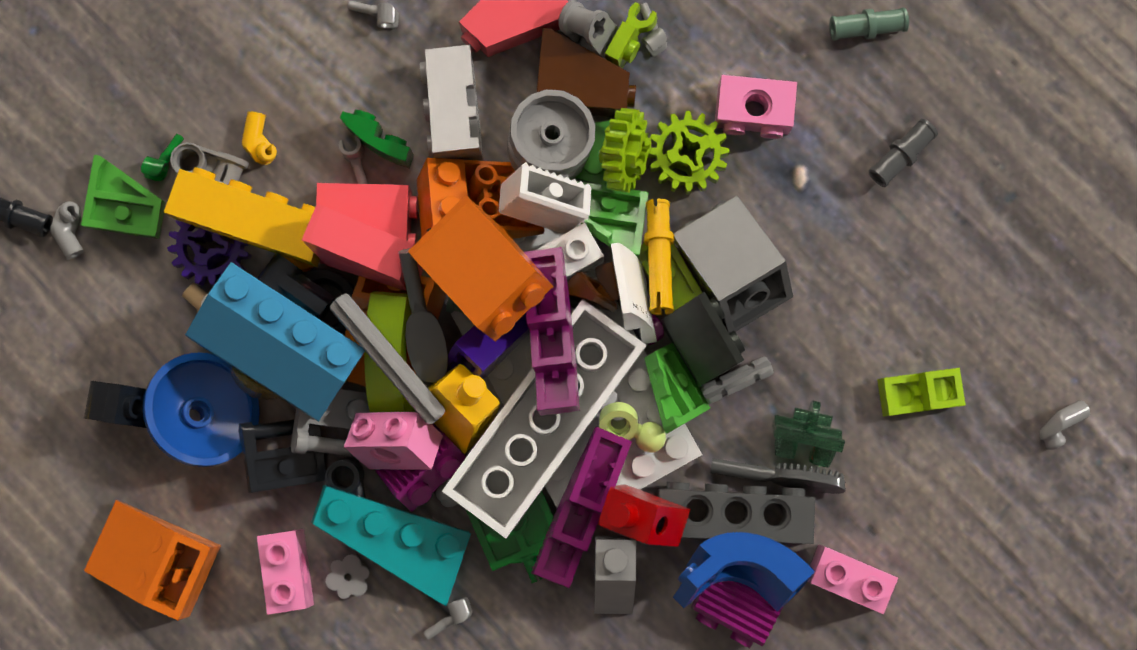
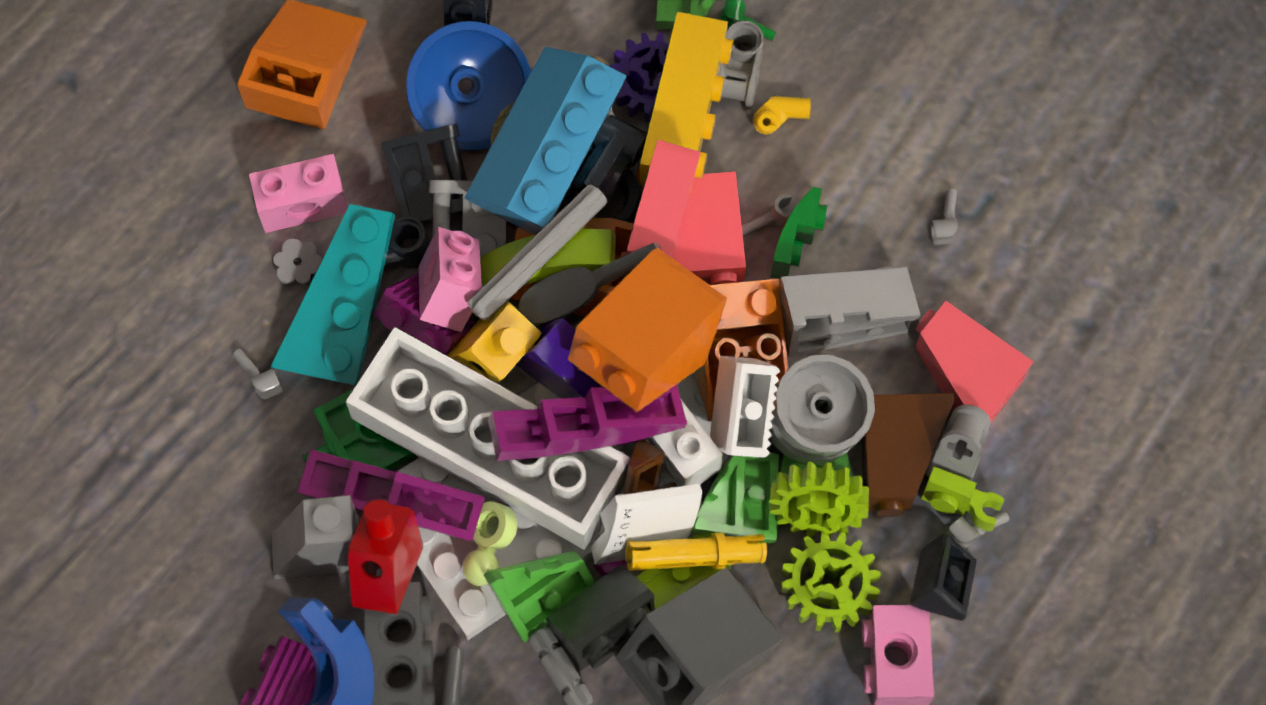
camera: 80 degrees right, 15 degrees down
(697, 61) = (944, 579): none -> black slope

